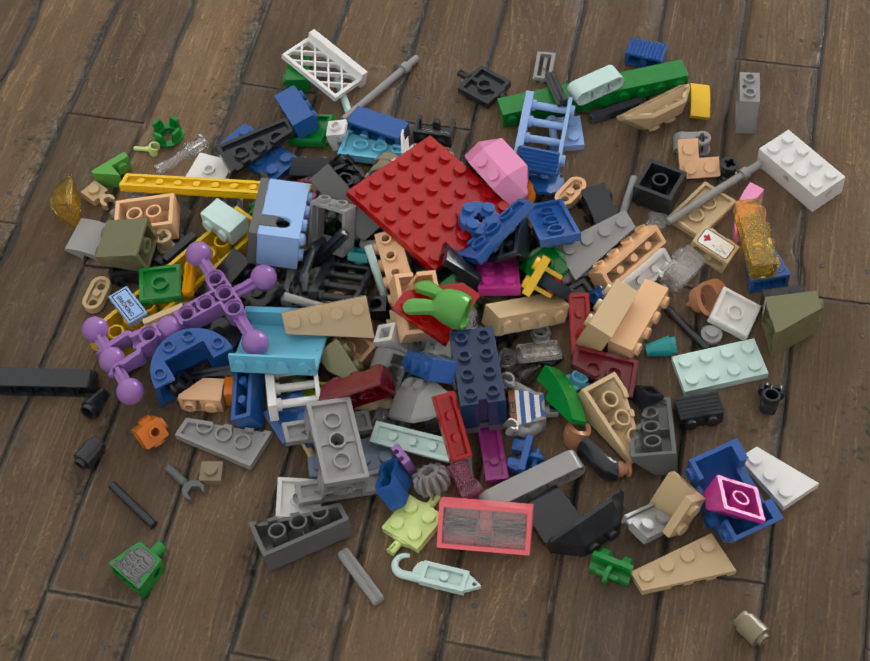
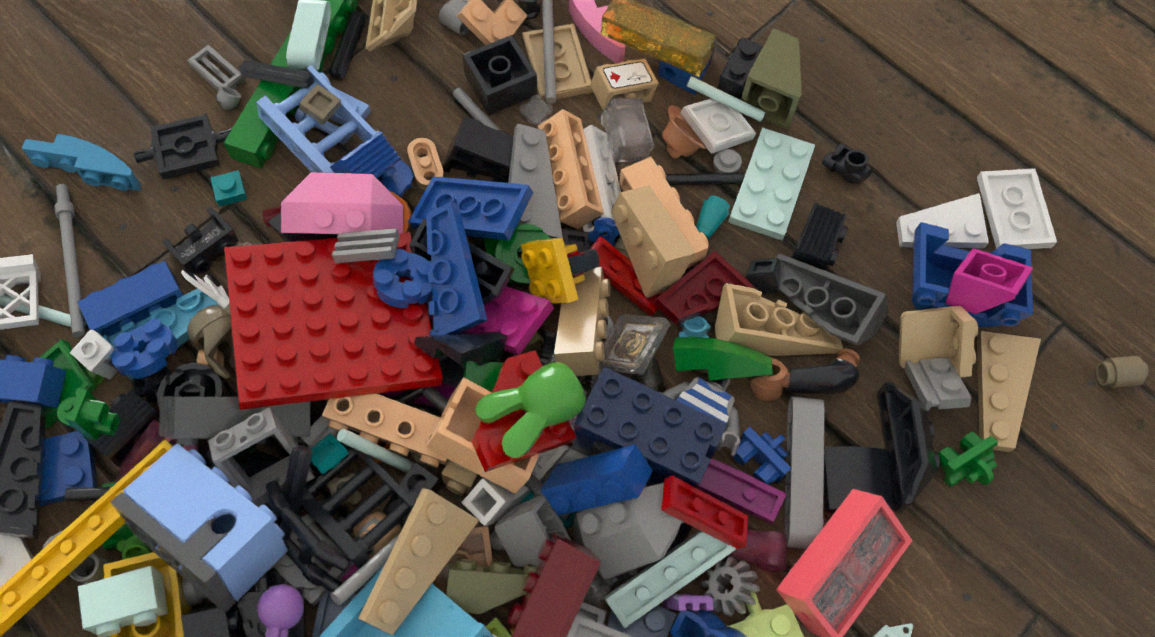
camera: 65 degrees left, 10 degrees up
(300, 148) = (88, 415): none -> green hips
(354, 146) = (129, 348): none -> blue plate
(437, 54) = (91, 161): none -> dark azure slope
(477, 122) = (228, 188): none -> teal plate
(483, 188) = (366, 245): none -> light grey tile
(530, 83) = (228, 98): none -> light grey hinge
(552, 117) = (320, 104): none -> dark tan plate
(753, 306) = (726, 99): none -> light aqua bar
(826, 510) = (1016, 208): none -> white plate

